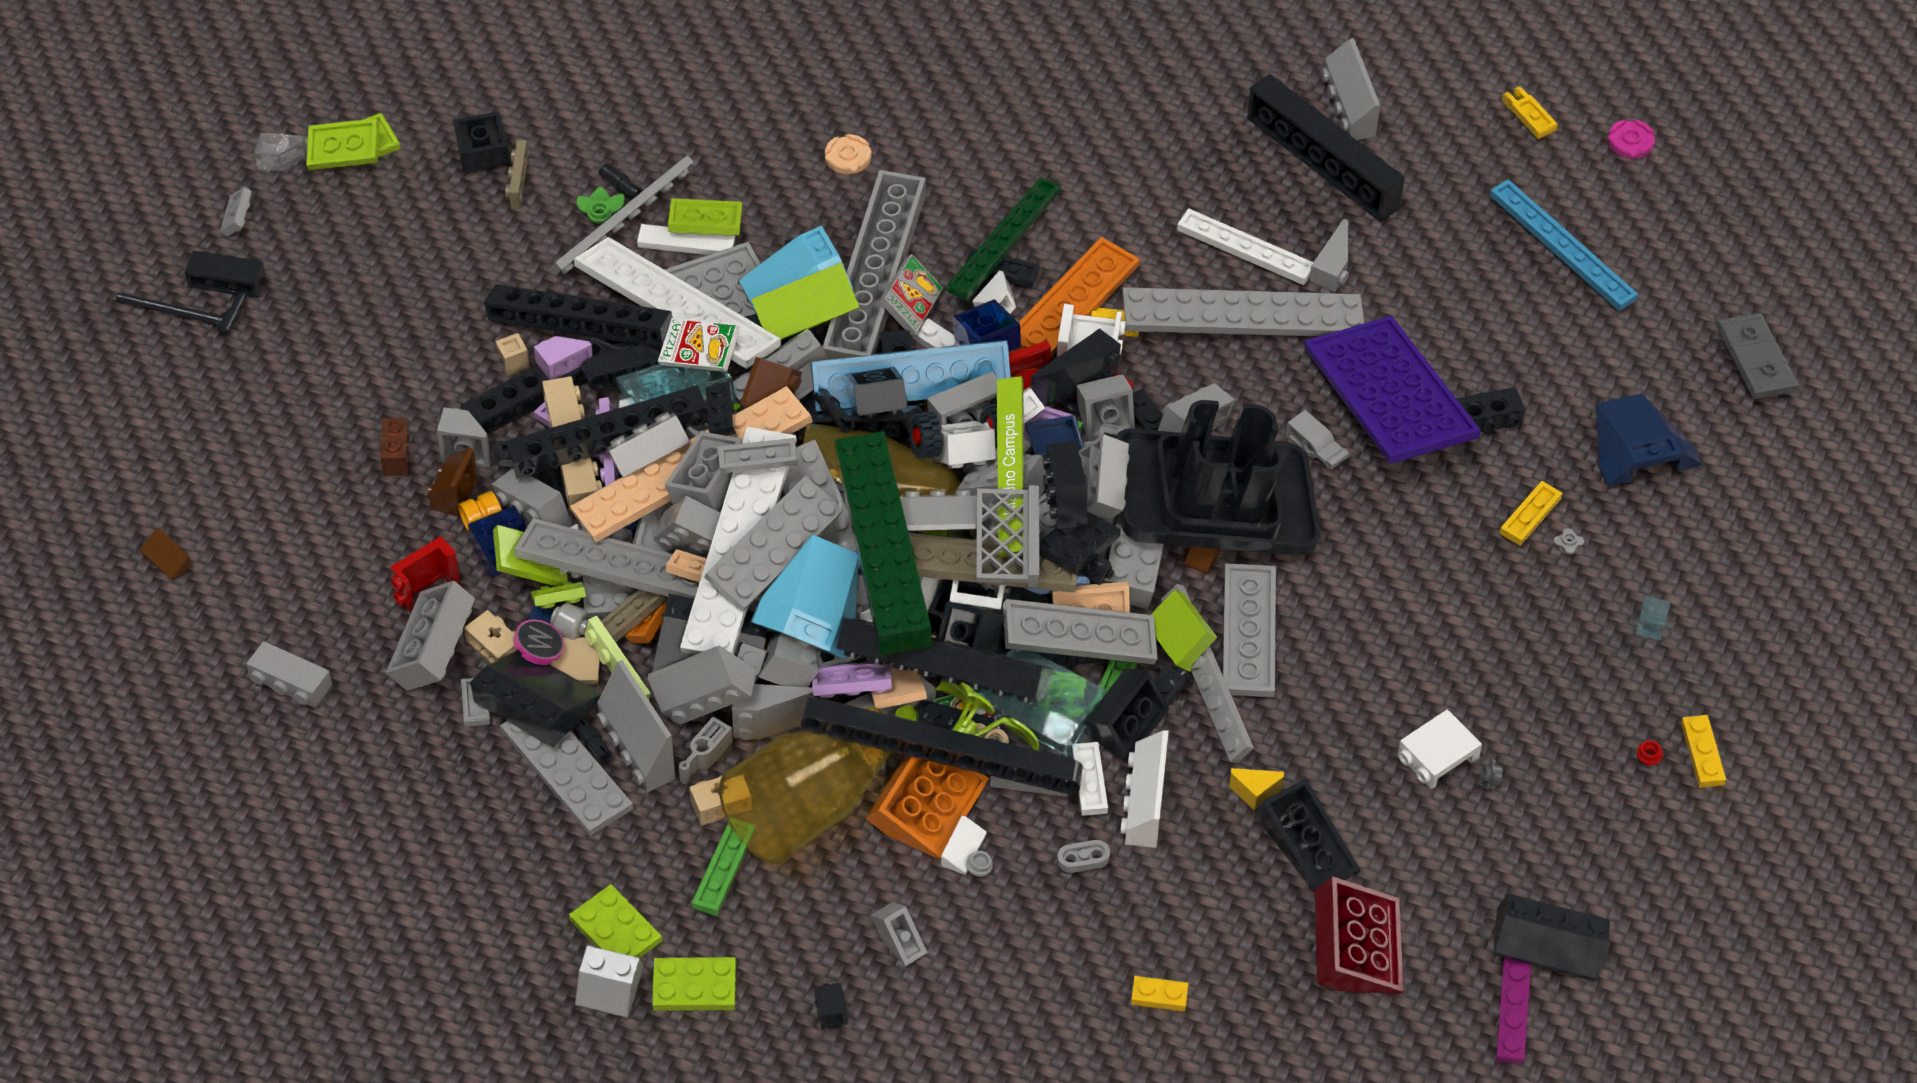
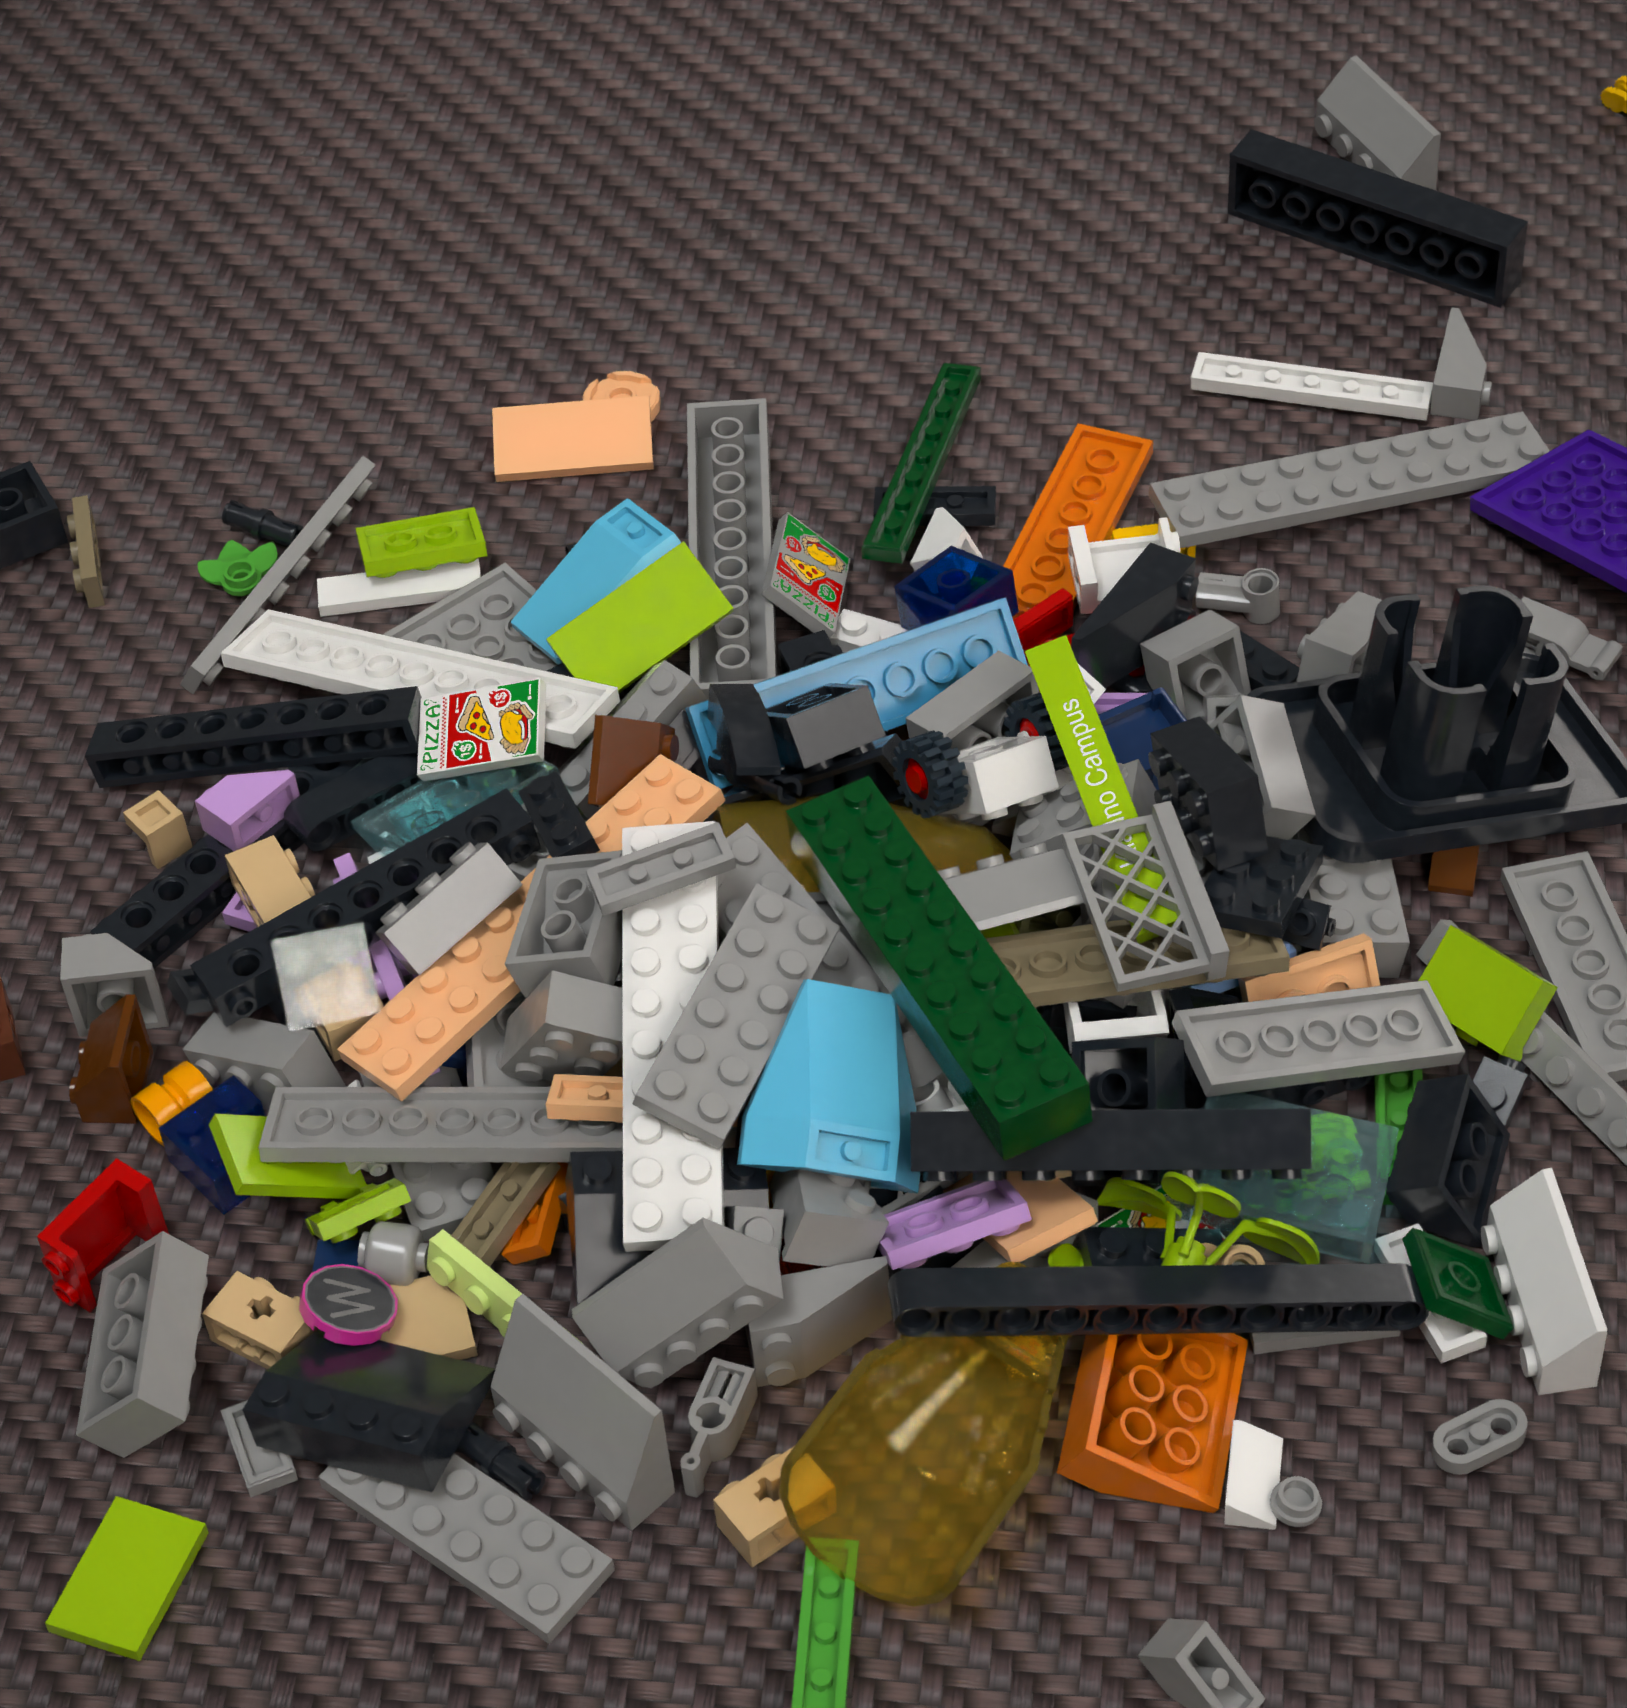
camera: 10 degrees left, 5 degrees down
(393, 750) = (127, 1578): none -> lime tile
(573, 466) = (325, 977): none -> clear plate
(811, 172) = (572, 438): none -> light nougat tile
(834, 384) = (743, 729): none -> black slope
(1102, 777) = (1457, 1283): none -> dark green tile
(1157, 368) = (1253, 594): none -> light grey piece

